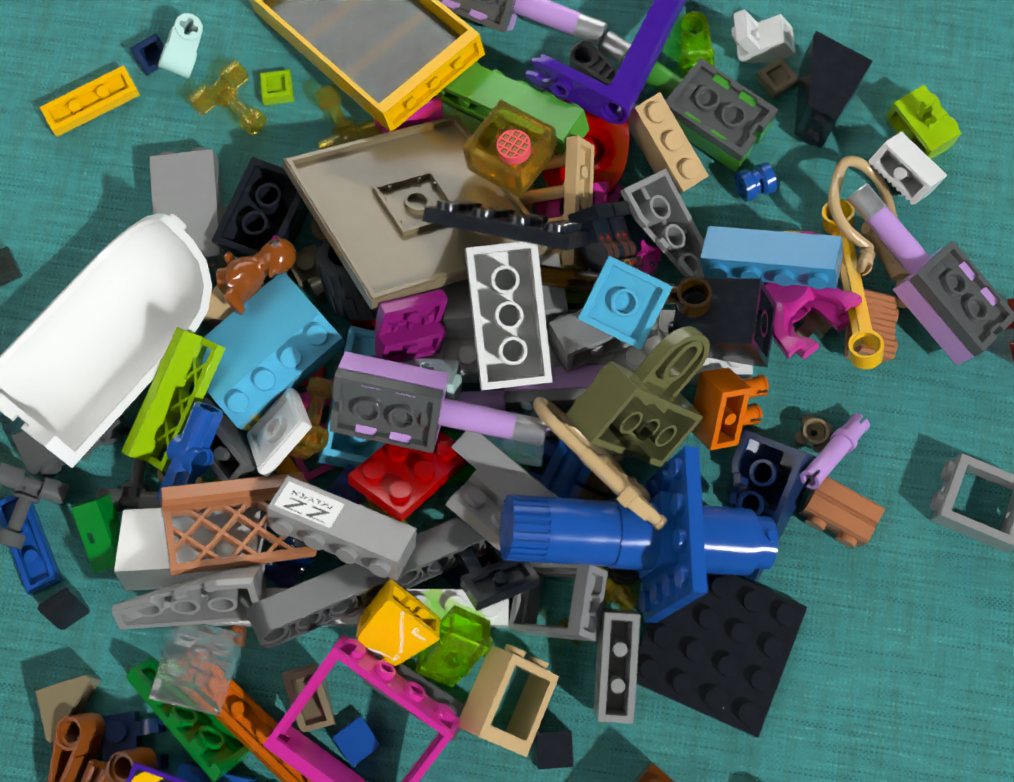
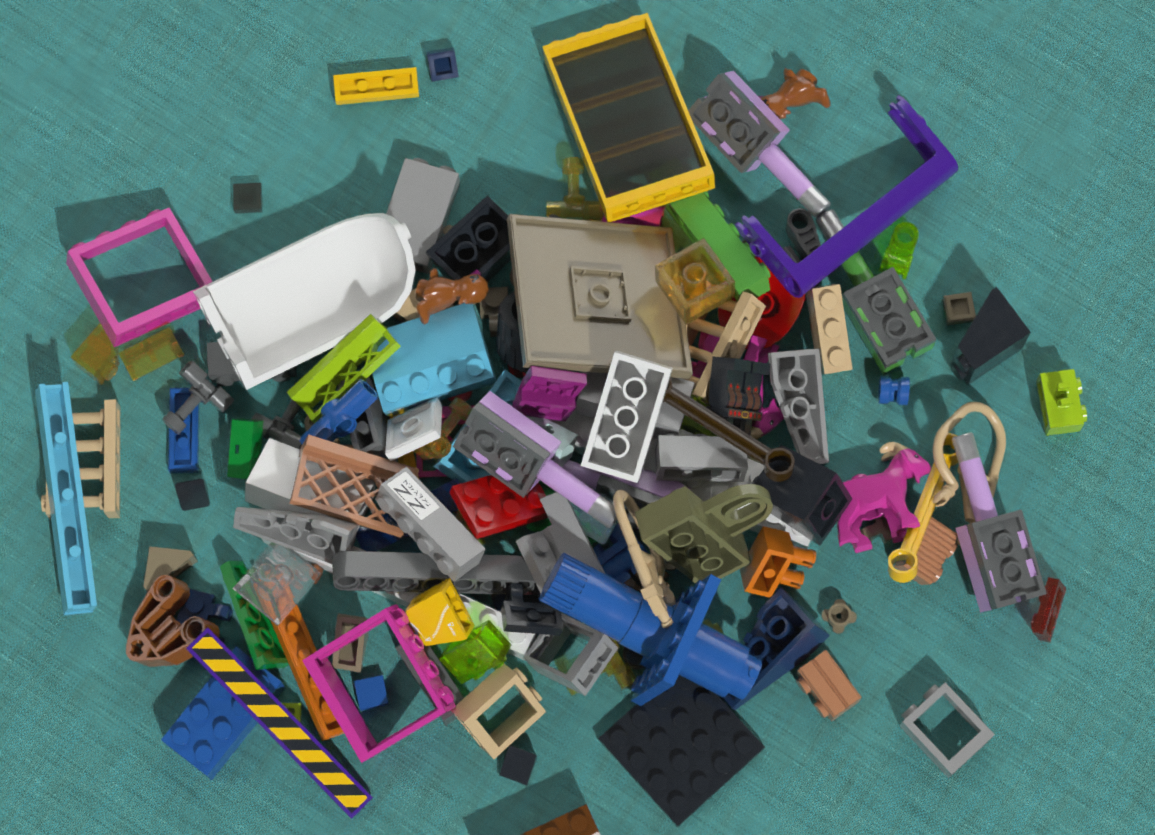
camera: 25 degrees right, 0 degrees up
(181, 49) = (467, 74): light aqua piece -> none
(225, 93) = (488, 125): clear yellow bar -> none
(277, 87) = (534, 138): lime tile -> none
(505, 224) = (656, 349): black plate -> none
(514, 147) = (693, 284): coral tile -> none
(616, 666) = (592, 721): light grey brick -> none
(625, 302) = (721, 446): medium azure plate -> none
(762, 40) = (958, 270): white brick -> none
(772, 256) = (867, 459): dark azure brick -> none
(841, 443) = (855, 632): lavender pin -> none
(907, 168) = (1024, 433): white brick -> none

